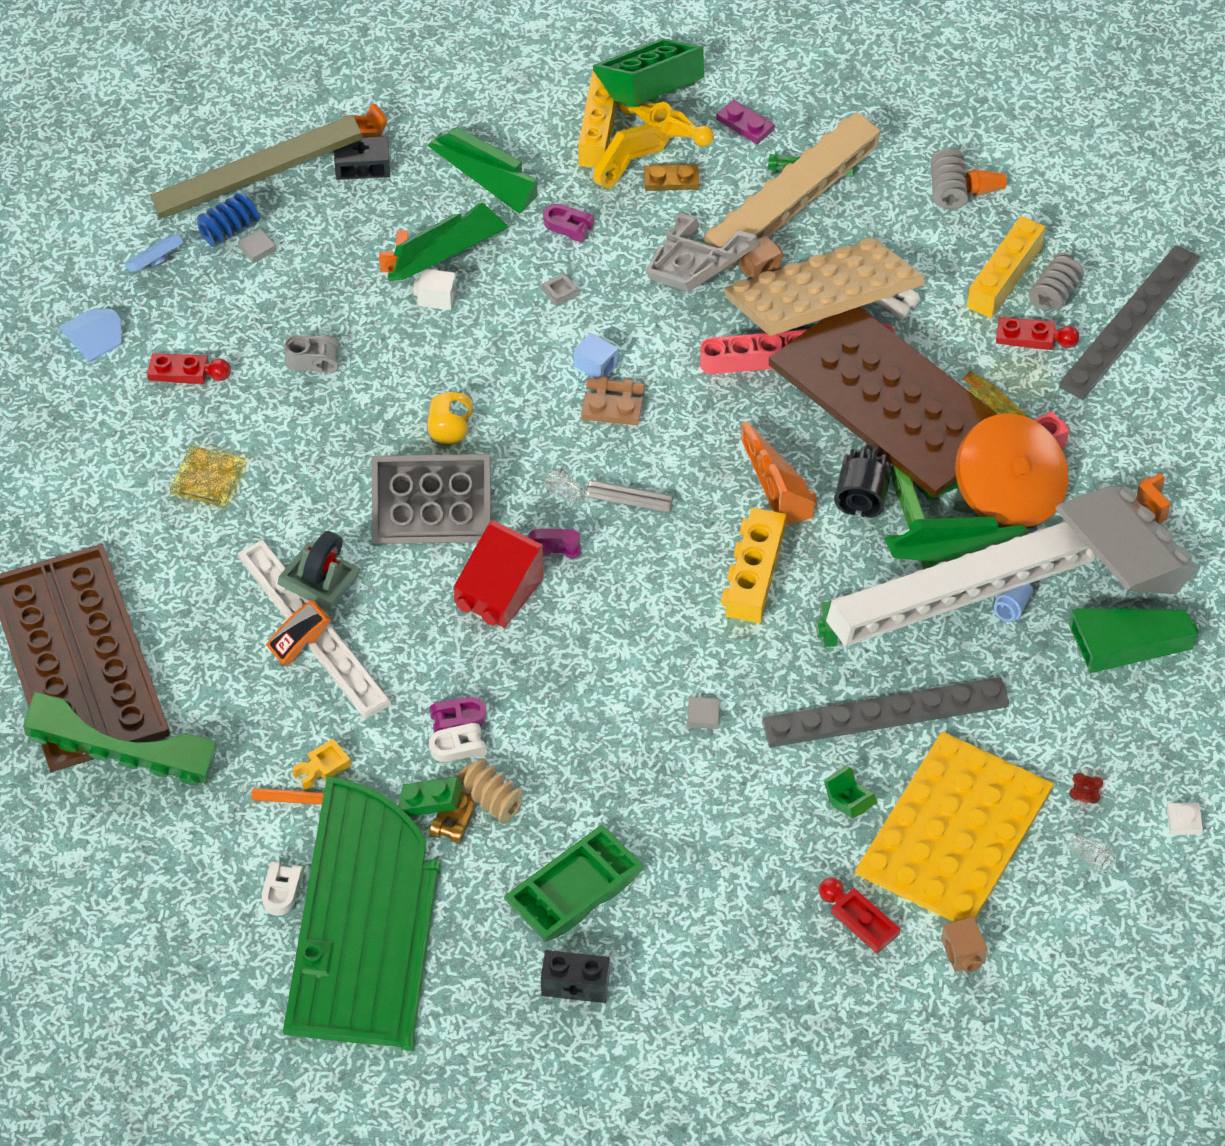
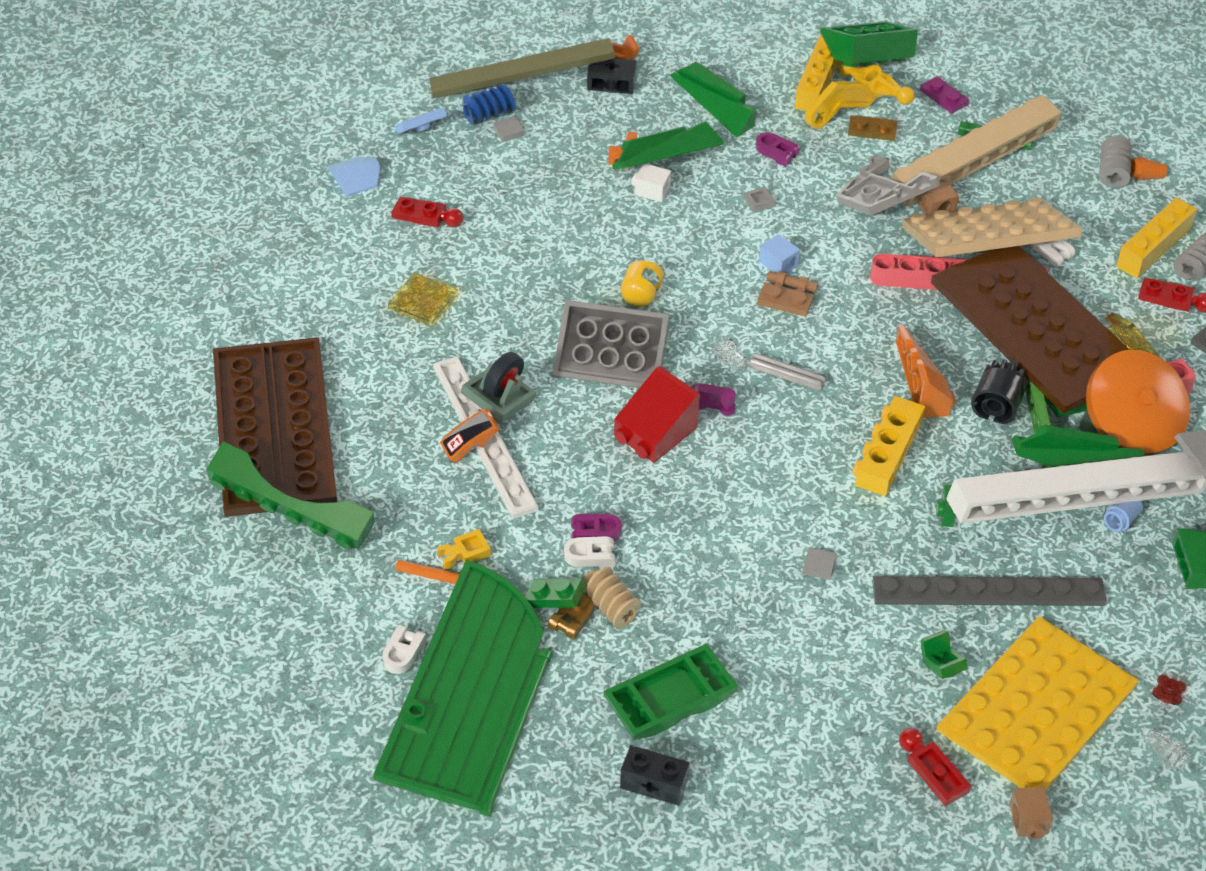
camera: 10 degrees right, 5 degrees down
(309, 353) = (532, 216): light grey piece -> none

